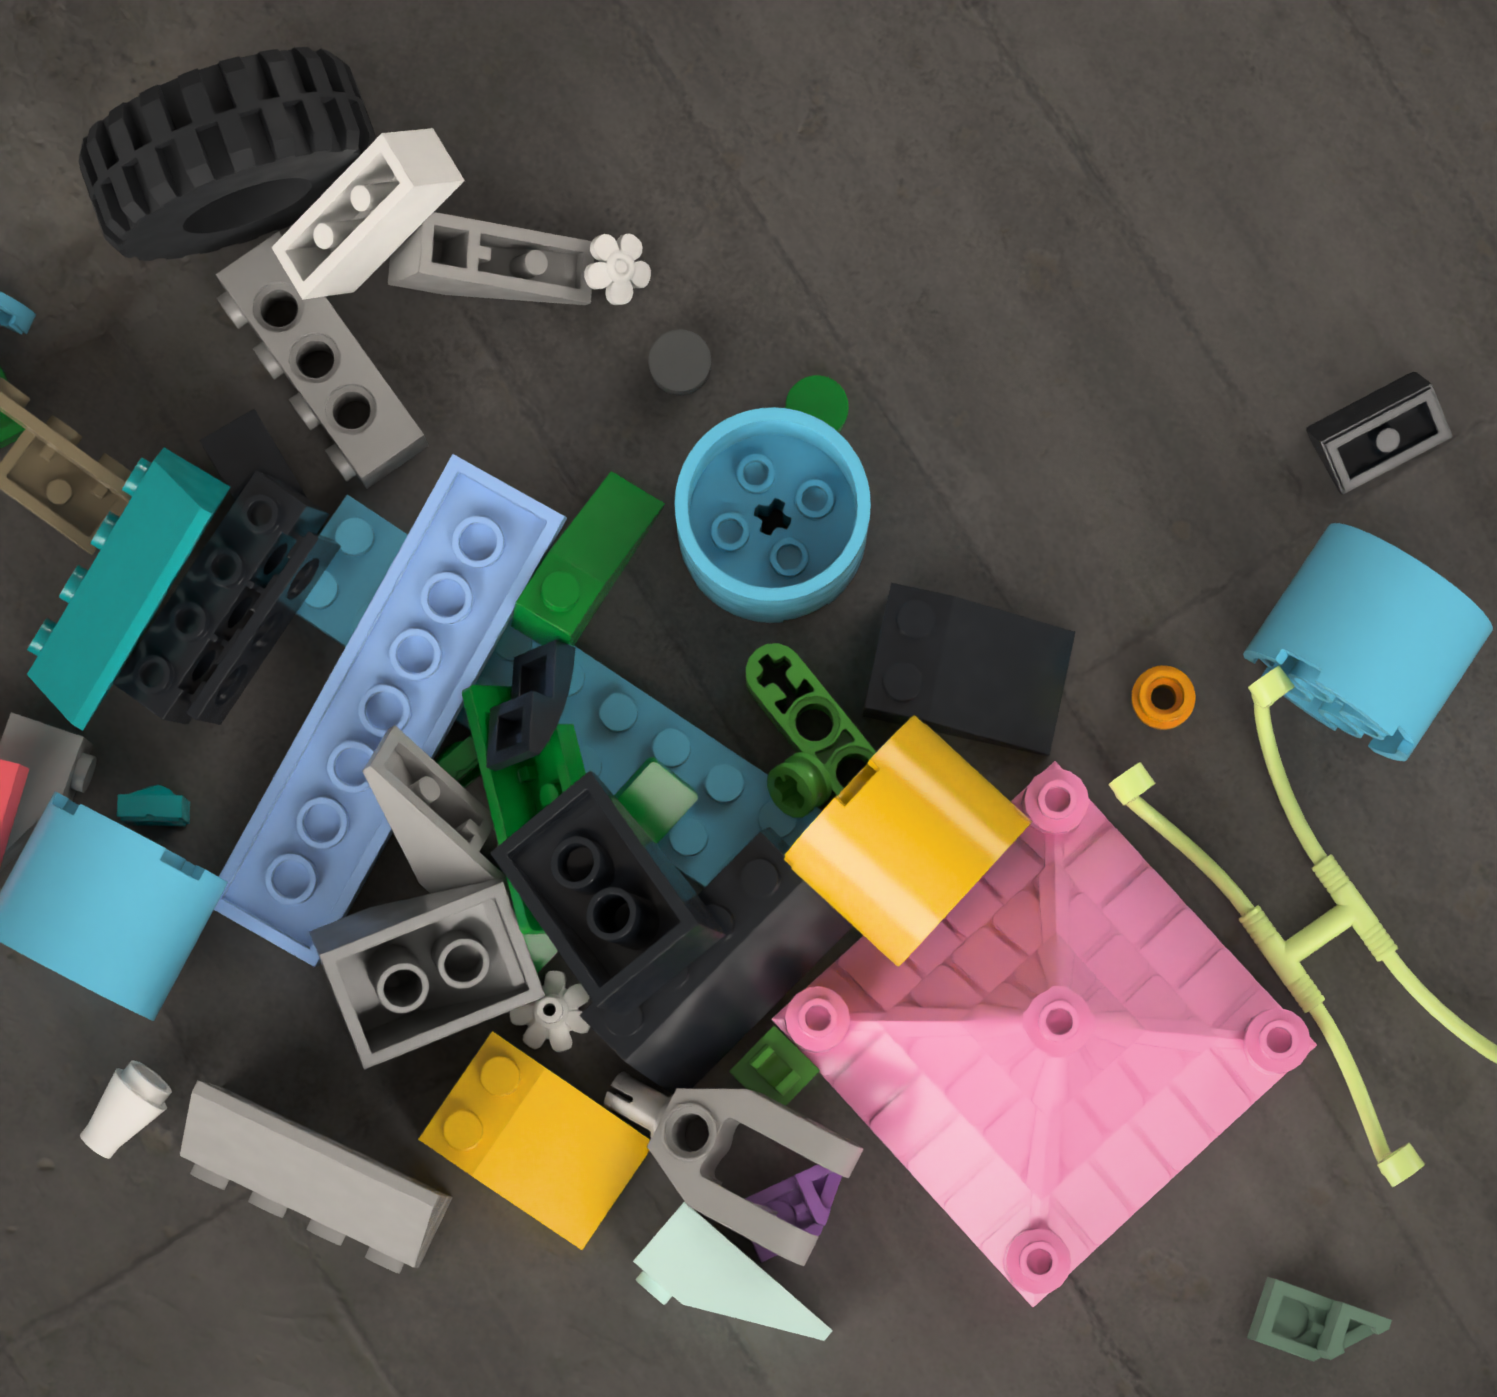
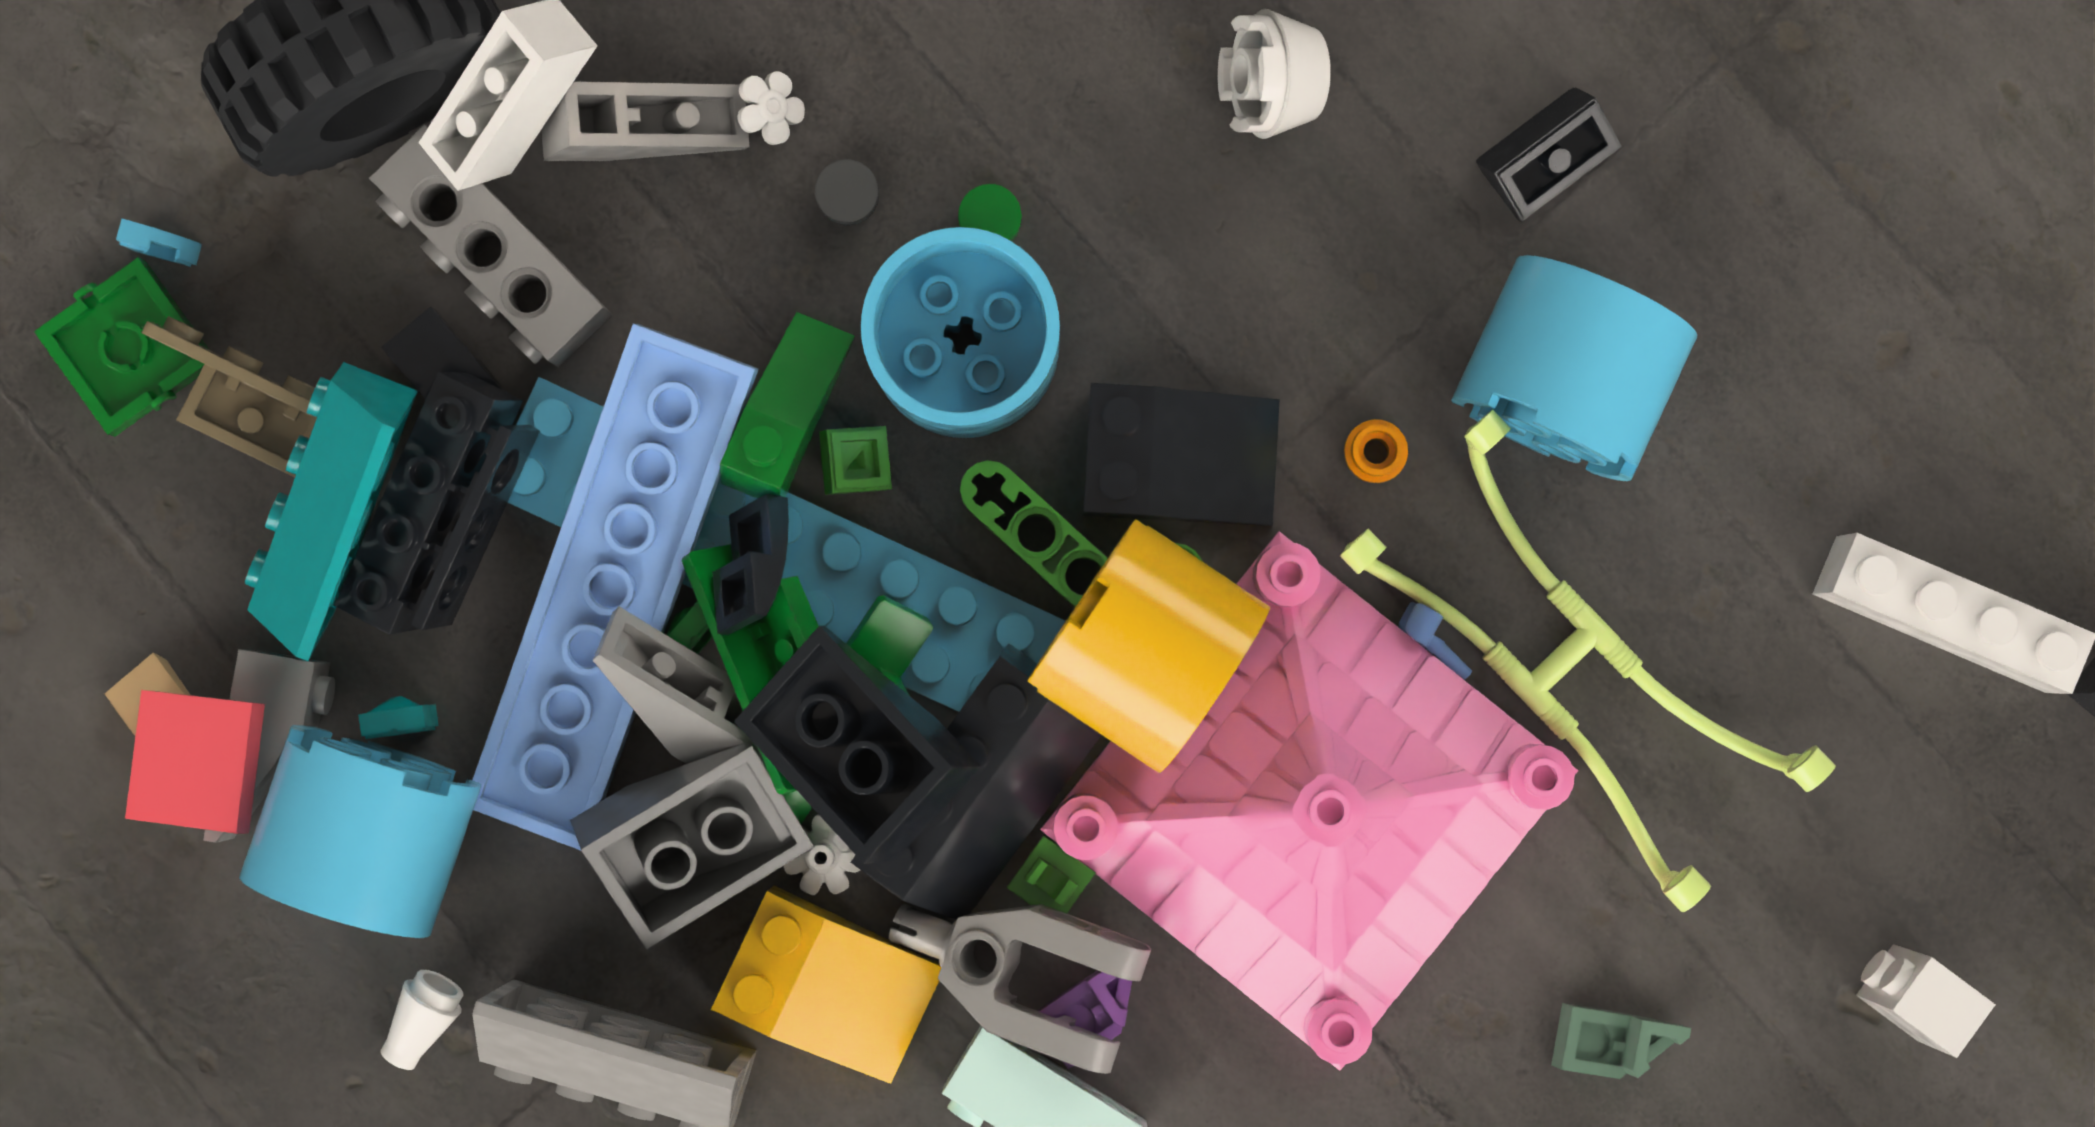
camera: 10 degrees left, 5 degrees up
(646, 625) = (855, 460): none -> bright green tile
(799, 785) = (1031, 597): bright green bush -> none
(1117, 311) = (1273, 73): none -> white cone
(1182, 875) = (1421, 624): none -> medium blue hand

